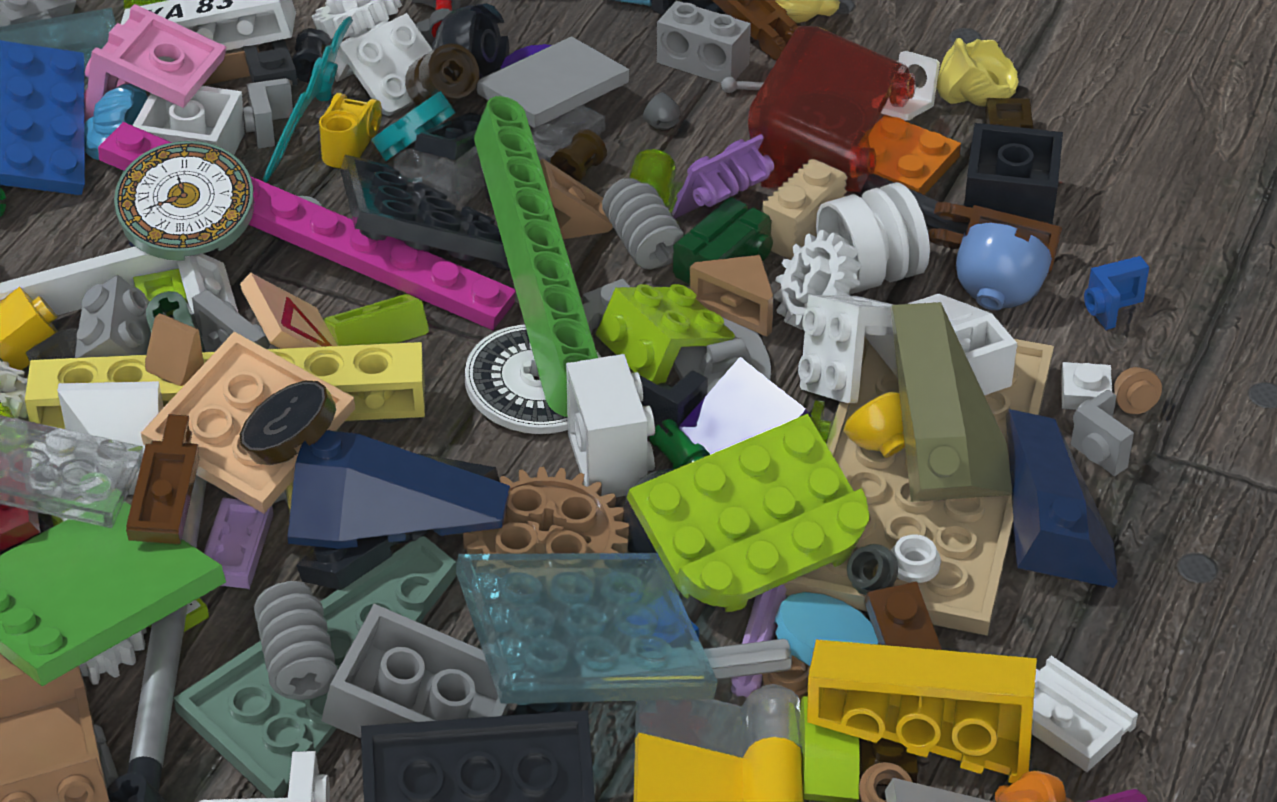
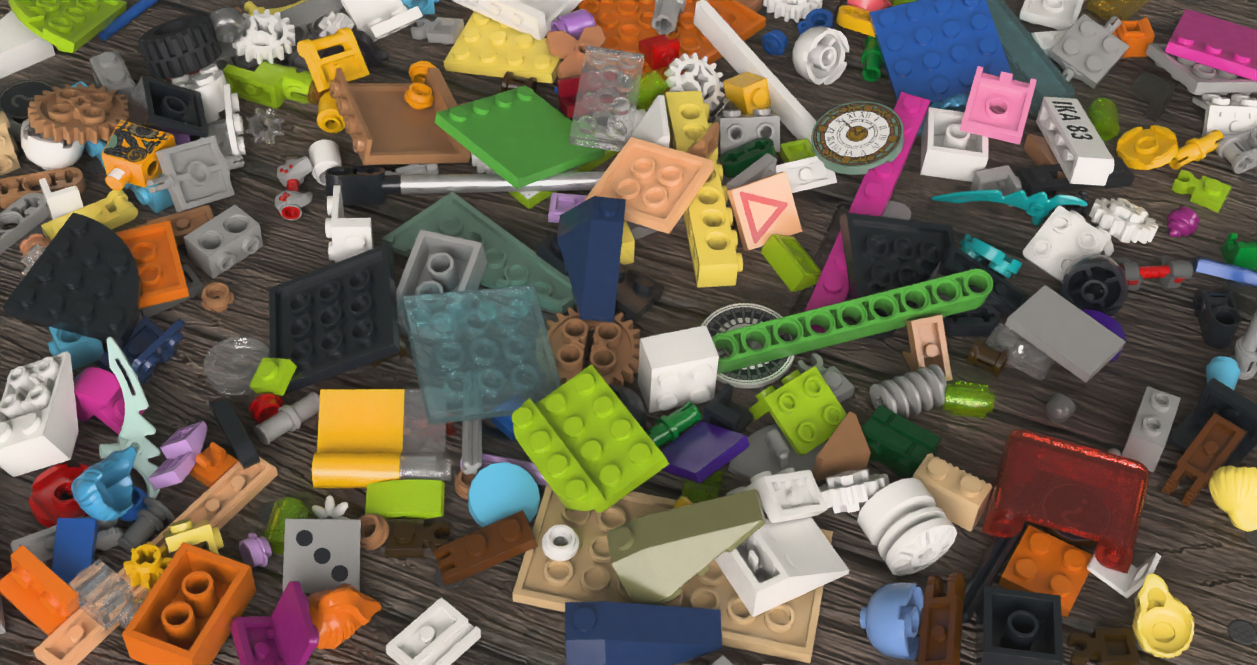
camera: 85 degrees right, 5 degrees up
(164, 485) = (584, 148): reddish brown hinge -> none
(286, 421) = (625, 188): tile -> none
(295, 641) = (478, 225): light grey piece -> none
(348, 128) = (990, 227): yellow piece -> none
(429, 74) = (1050, 268): dark brown wheel -> none
(723, 175) = (967, 438): medium lavender hinge -> none
(862, 564) = (546, 515): pearl dark grey plate -> none
(928, 700) = (419, 540): yellow wedge -> none

